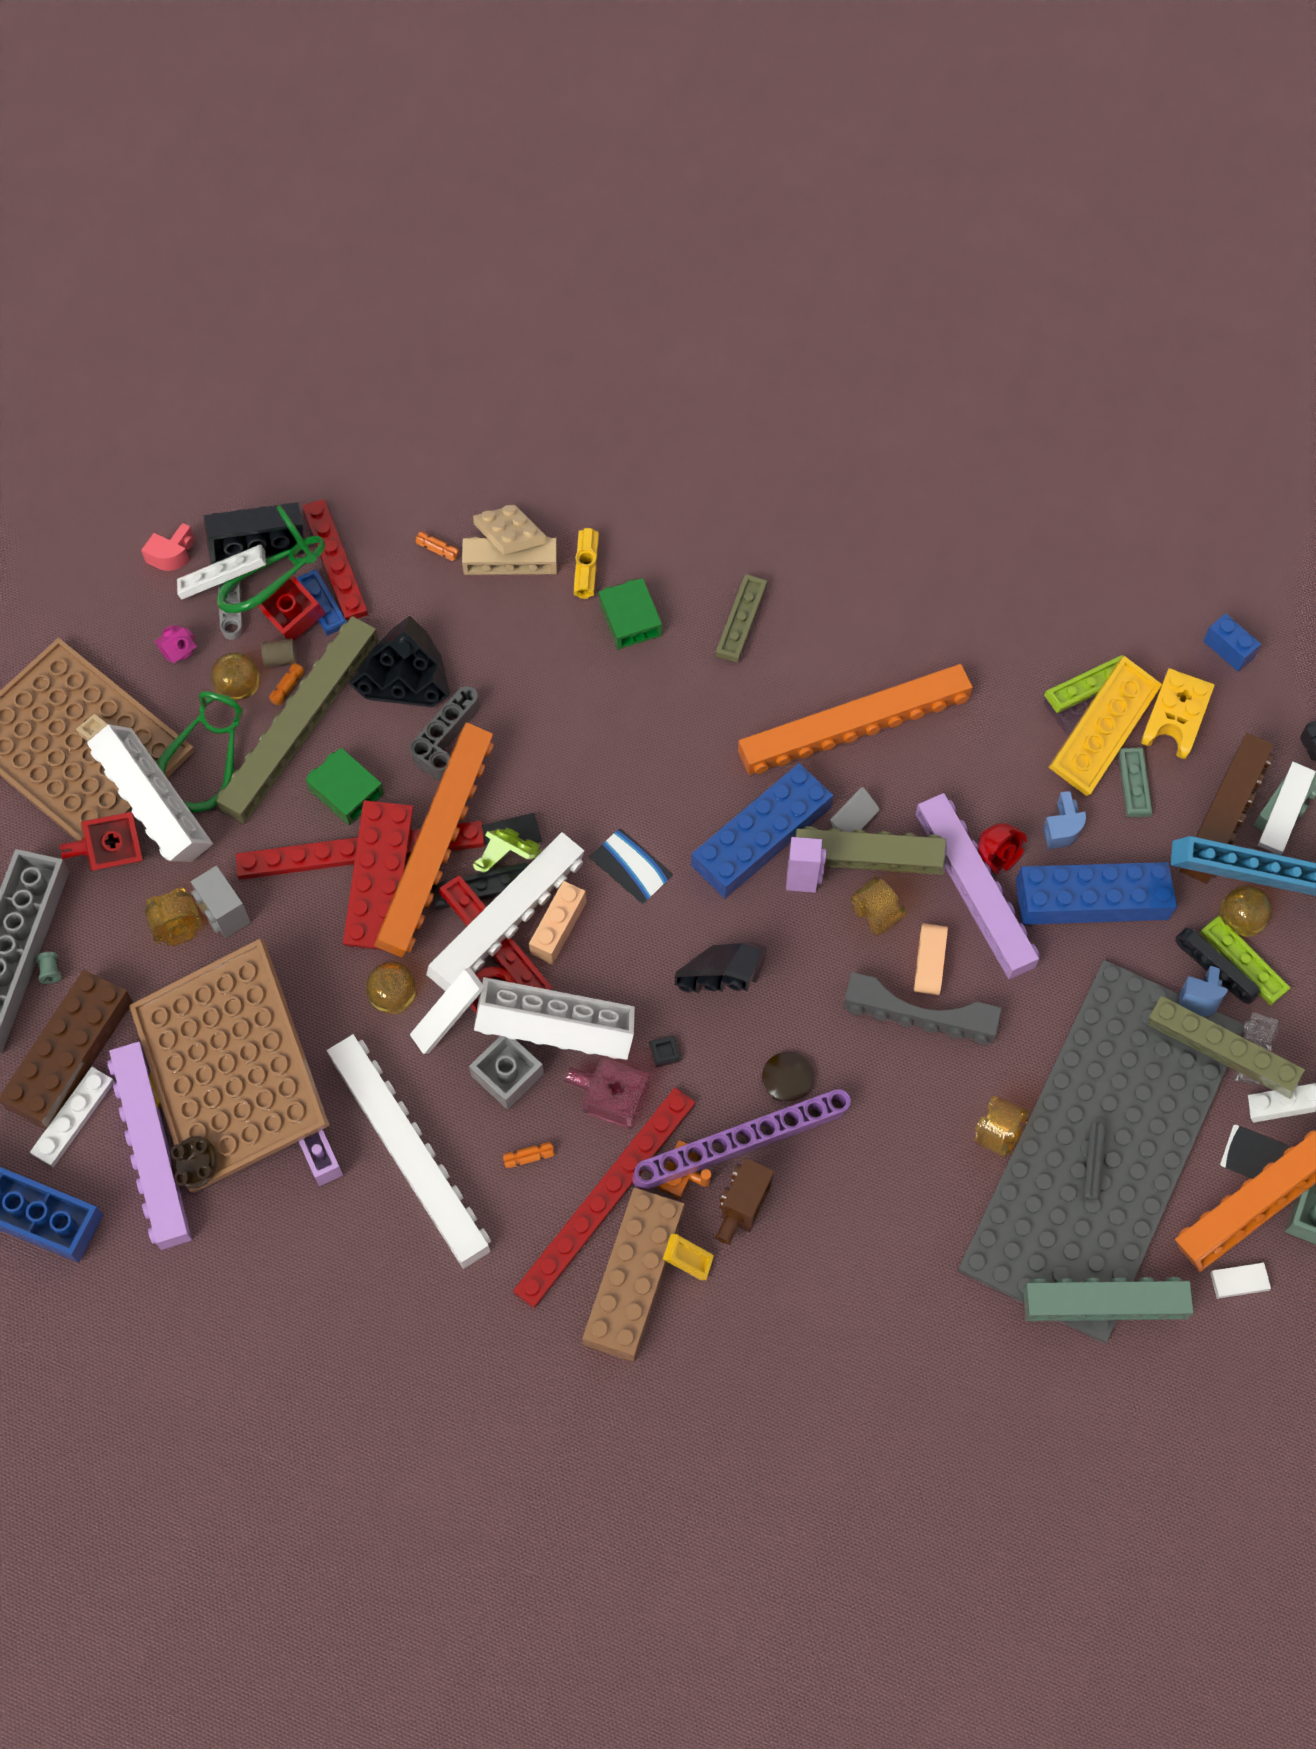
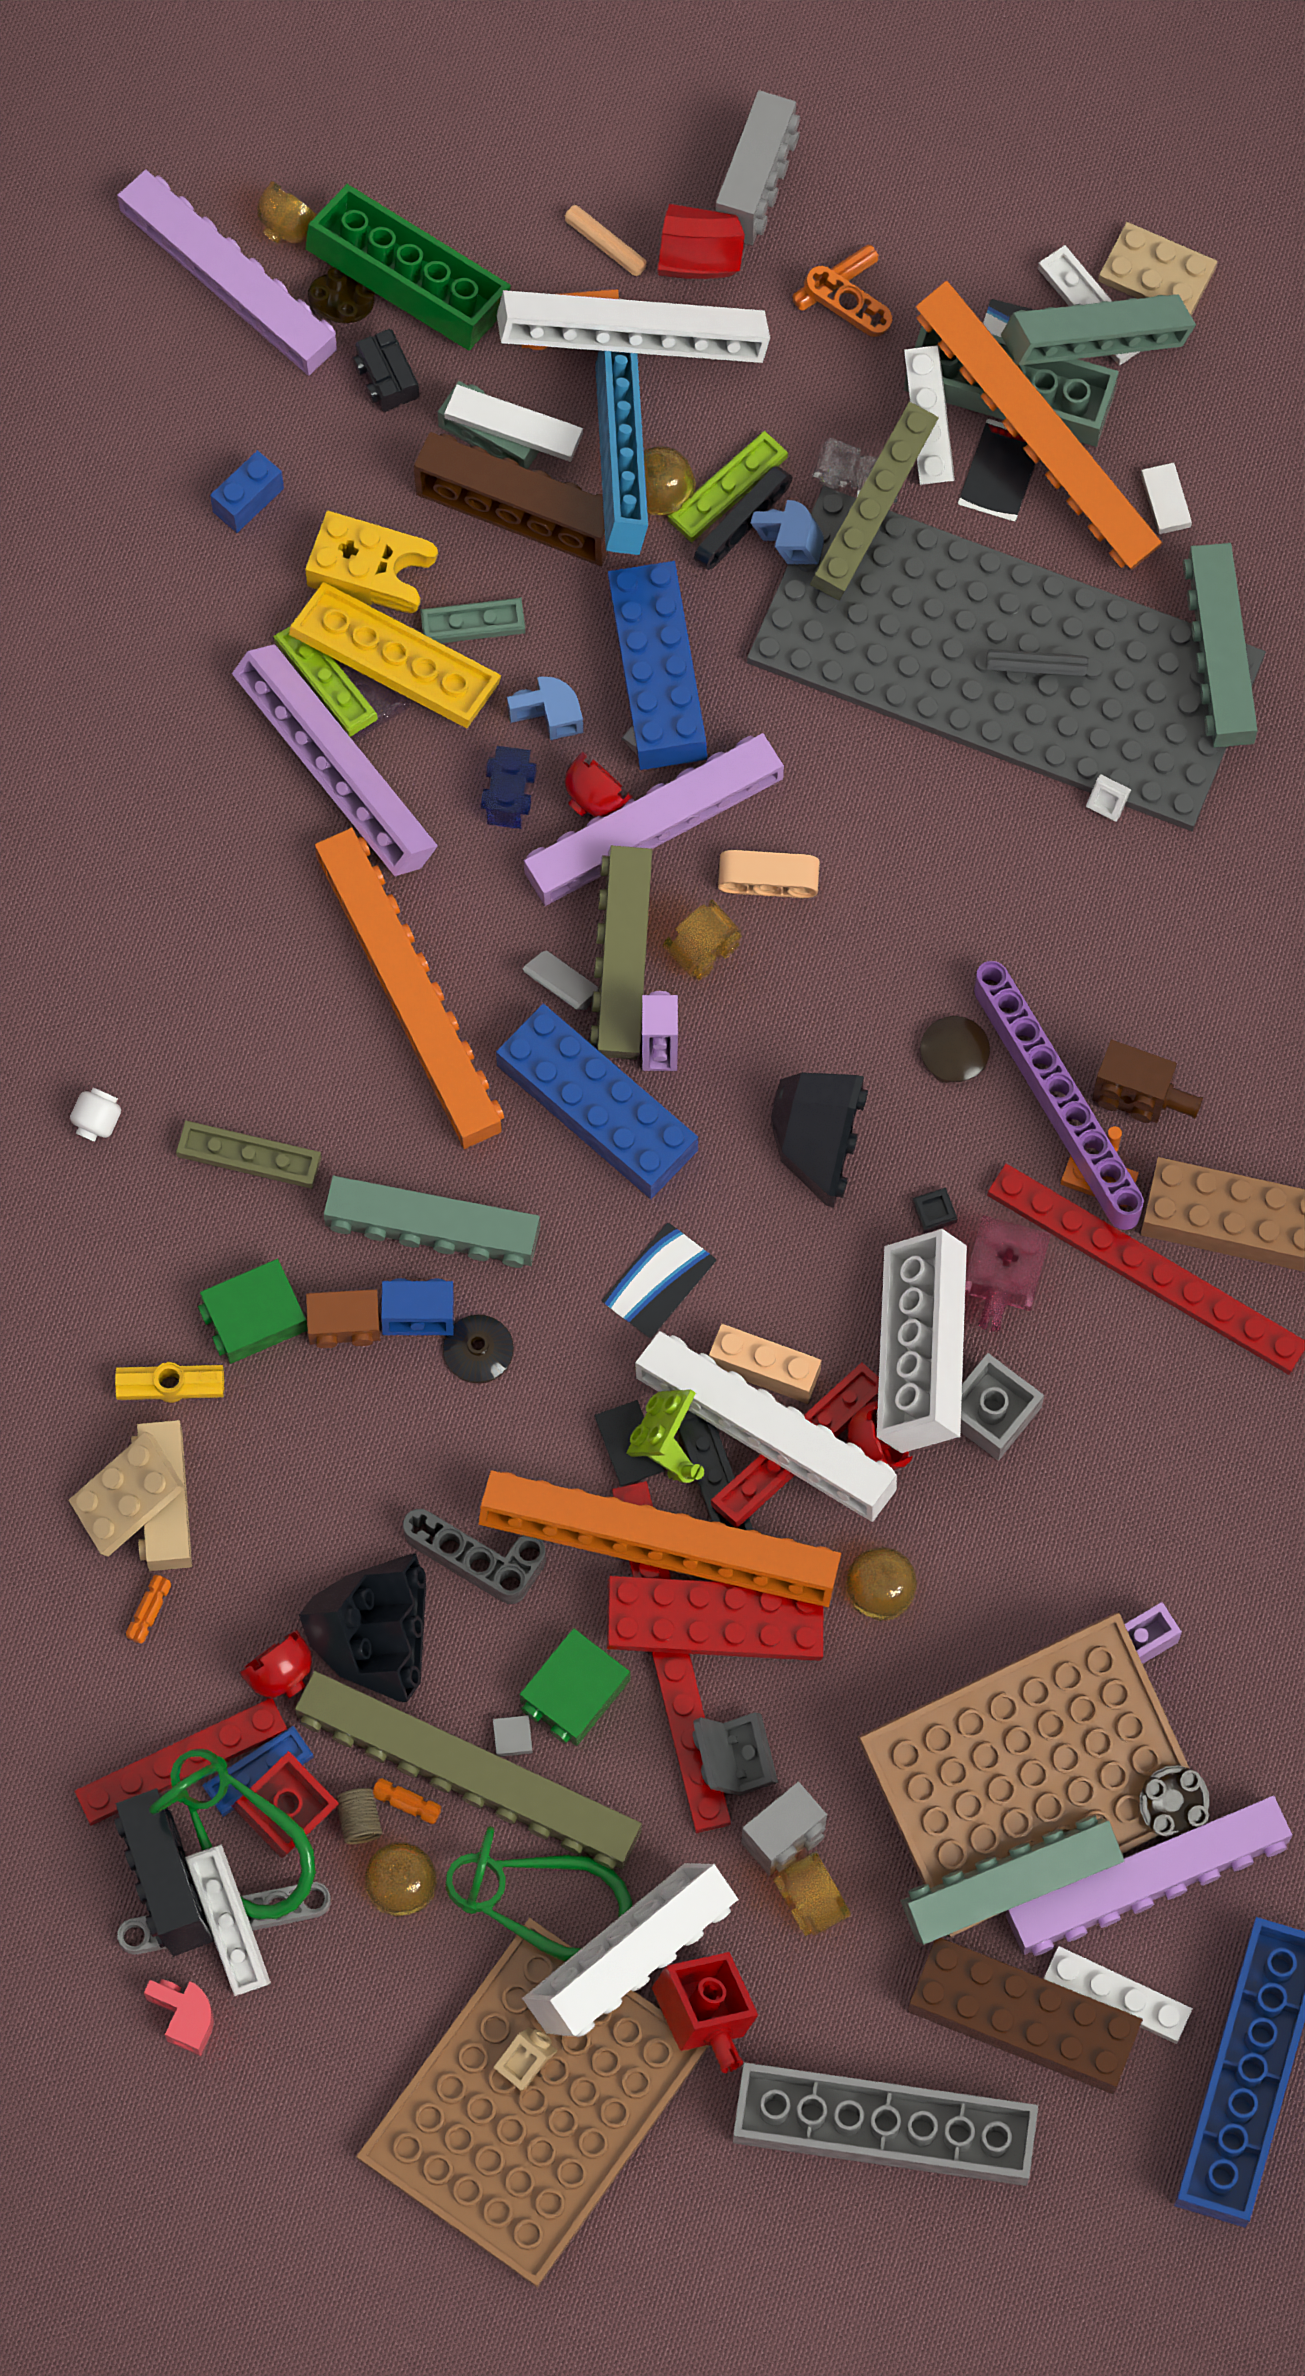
camera: 95 degrees left, 5 degrees up
(48, 967) = (902, 2067): sand green bush -> none
(154, 1043) = (1011, 1880): none -> sand green brick
(176, 643) = (356, 1971): dark pink brick -> none
(279, 874) = (735, 1754): none -> dark grey bracket
(319, 749) = (512, 1736): none -> light grey tile
(381, 609) = (279, 1668): none -> red cylinder
(409, 1152) = (1115, 1528): white brick -> none
(447, 1010) = (925, 1485): white tile -> none
(528, 1155) = (1102, 1372): orange axle -> none
(593, 758) = (482, 1364): none -> dish
(618, 663) = (343, 1318): none -> dark orange brick
(621, 709) = (417, 1307): none -> blue brick
(683, 723) = (431, 1221): none -> sand green brick
(688, 1257) = (1224, 1150): yellow tile -> none
(775, 530) = (95, 1114): none -> white head
(973, 1021) = (831, 948): dark grey arch -> none
(983, 1205) = (1108, 798): none -> white tile
(1001, 1126) = (1003, 775): clear yellow brick -> none
(1003, 791) = (508, 796): none -> clear blue brick
(1025, 682) = (334, 760): none -> lavender brick

